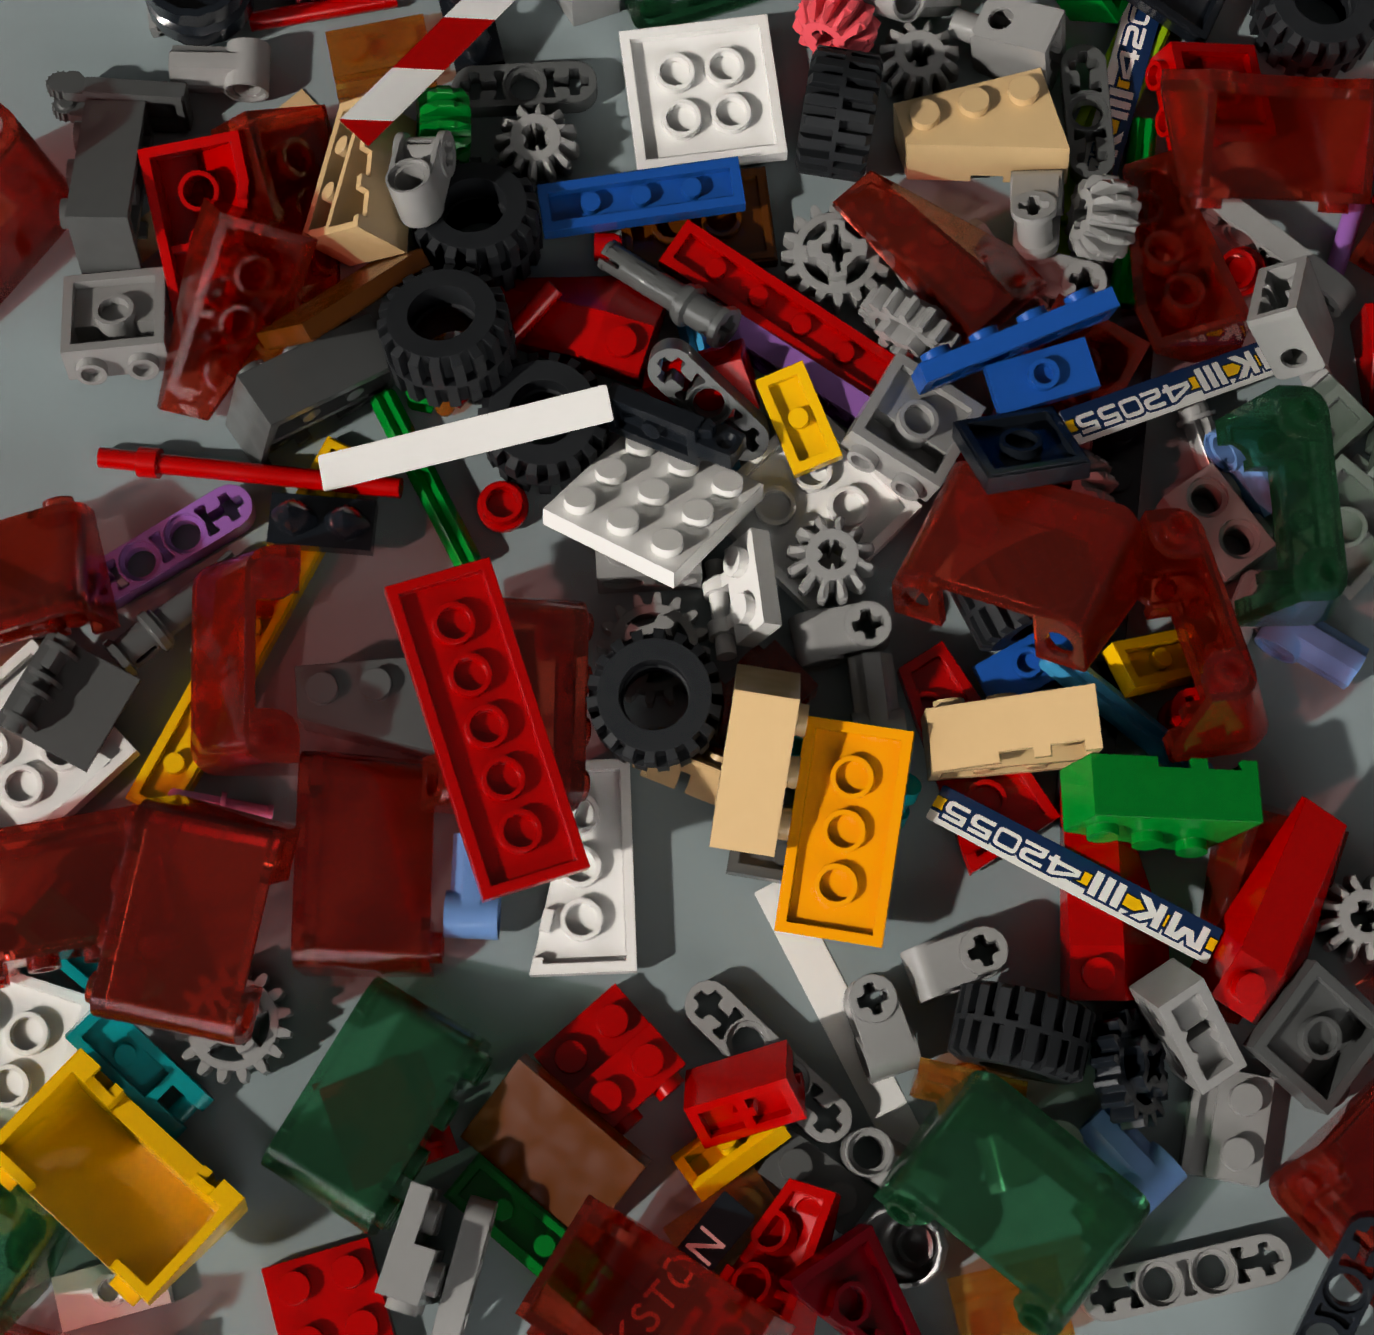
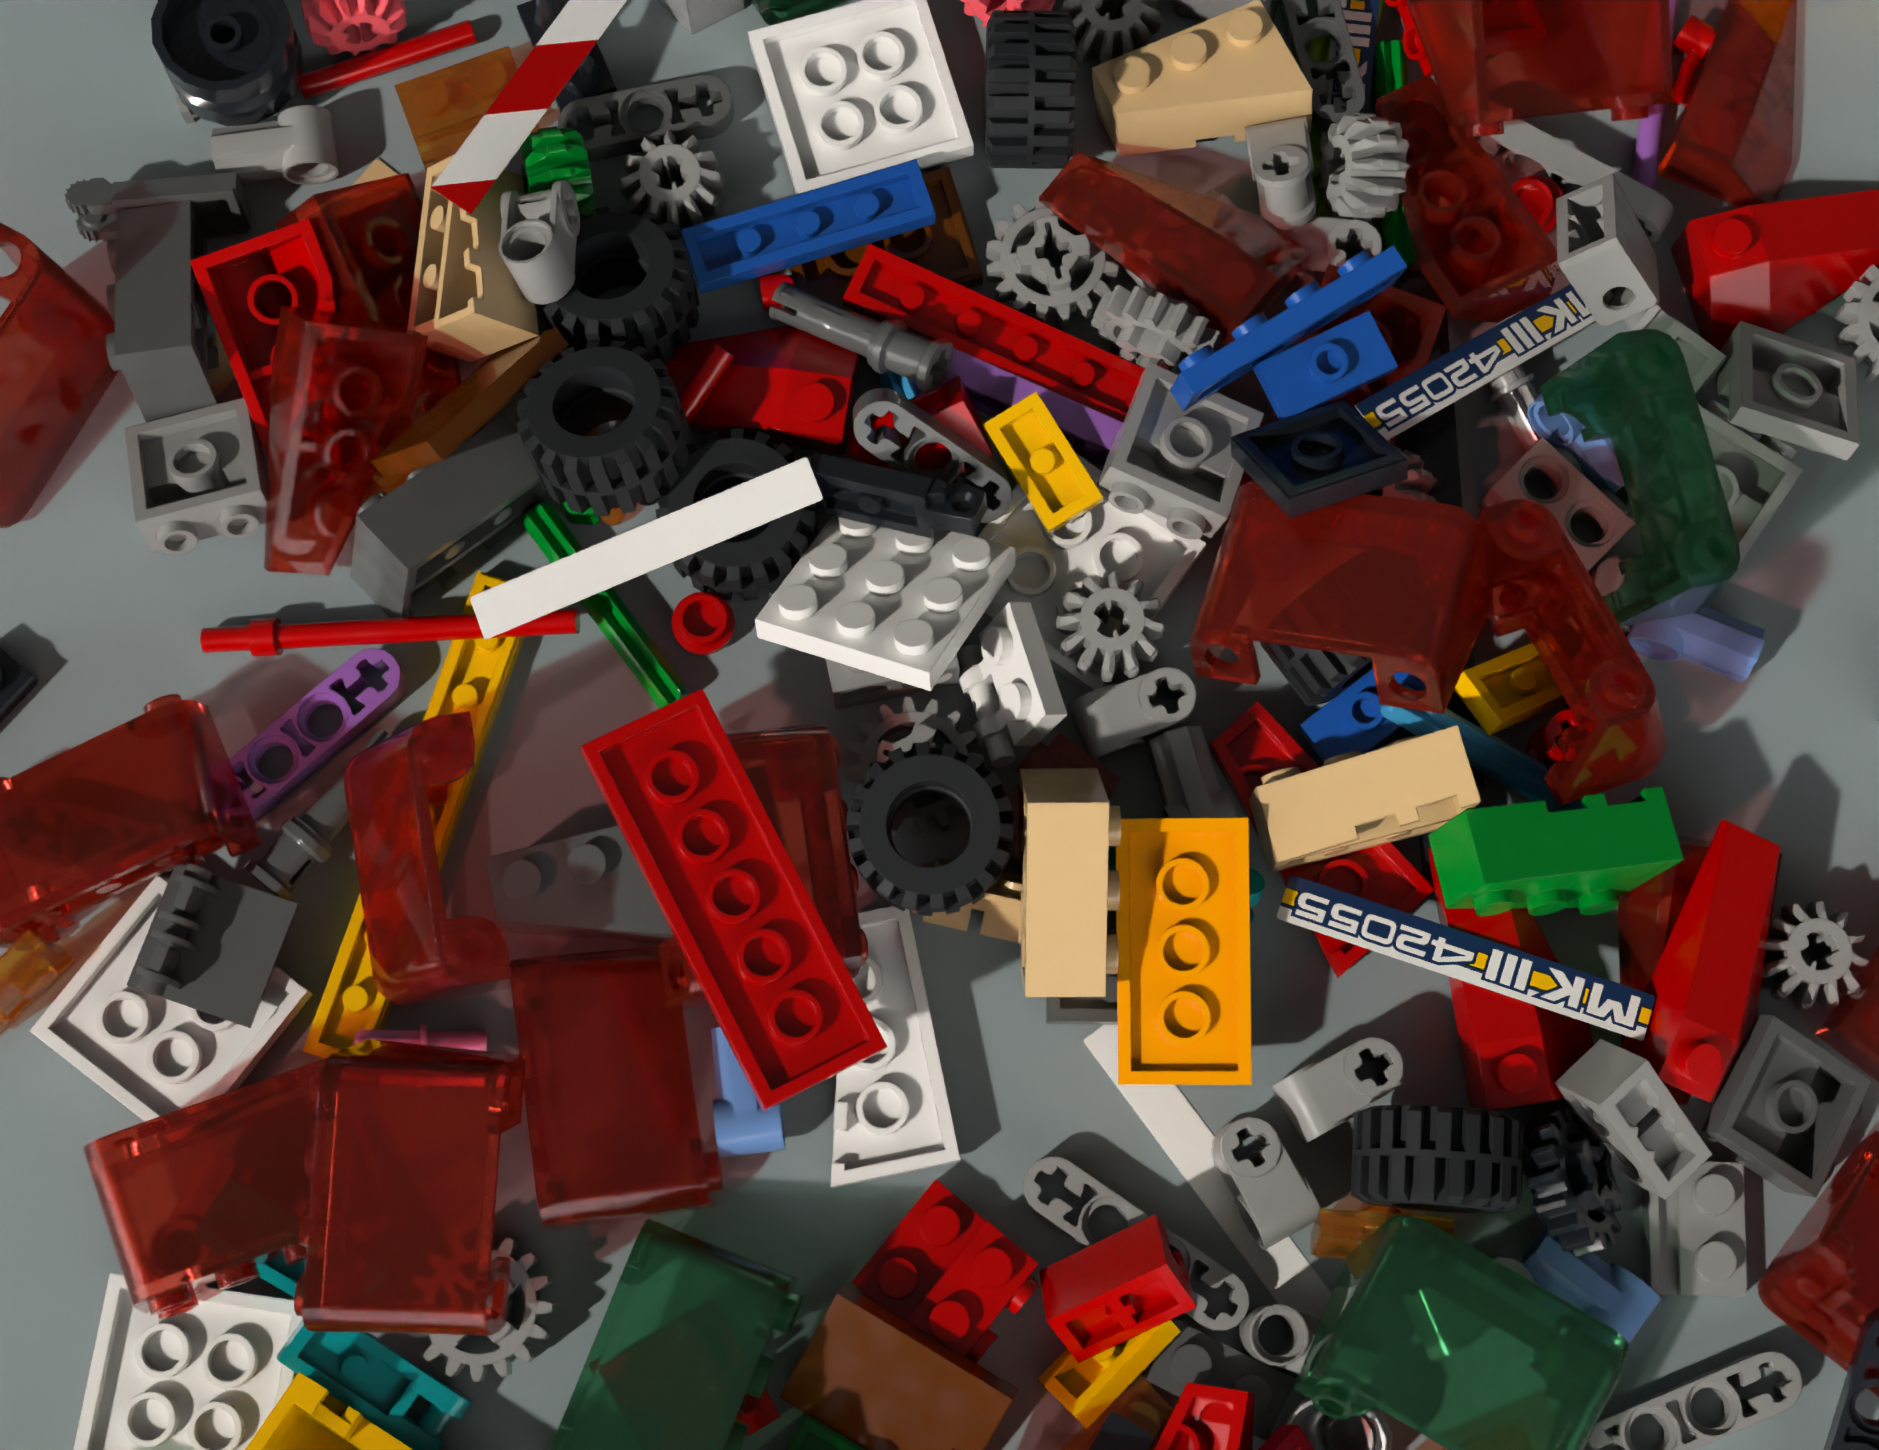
camera: 10 degrees left, 0 degrees up
(323, 523) = (489, 678): black tile -> none

